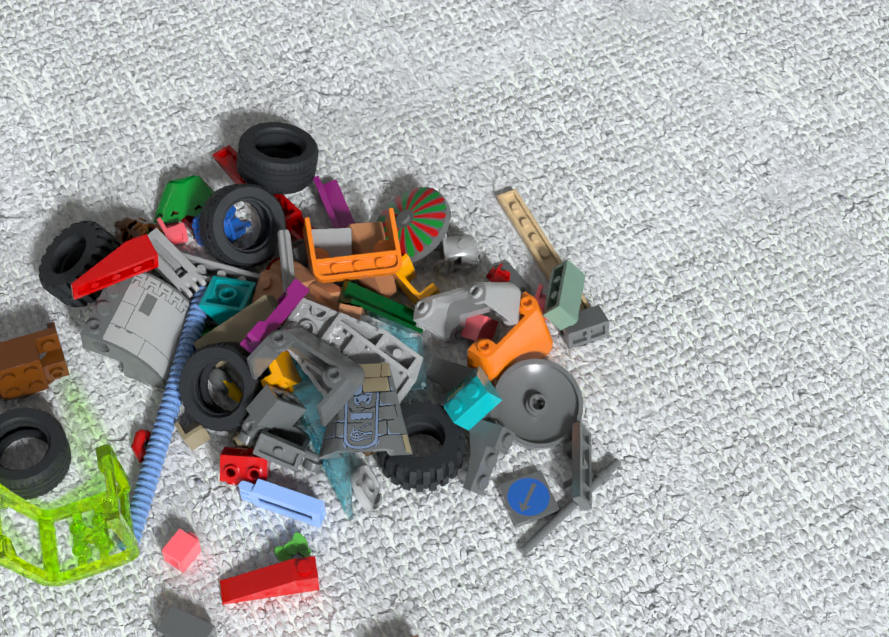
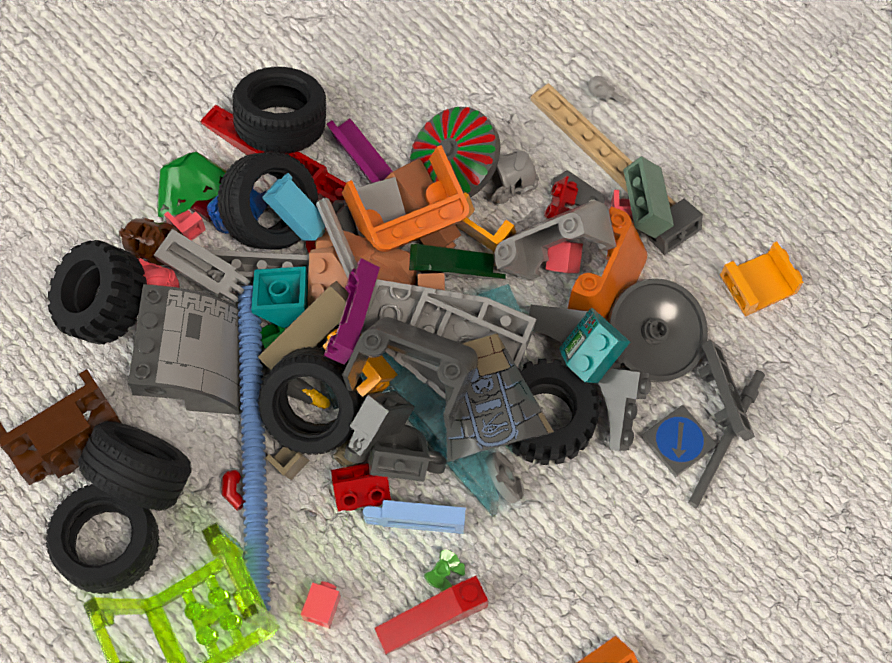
camera: 15 degrees left, 10 degrees up
(65, 400) = (134, 466): none -> black tyre
(123, 263) = (156, 282): red slope -> none
(260, 234) = (295, 209): none -> medium azure brick
(558, 202) = (599, 88): none -> light grey piece
(645, 388) = (762, 280): none -> light orange panel

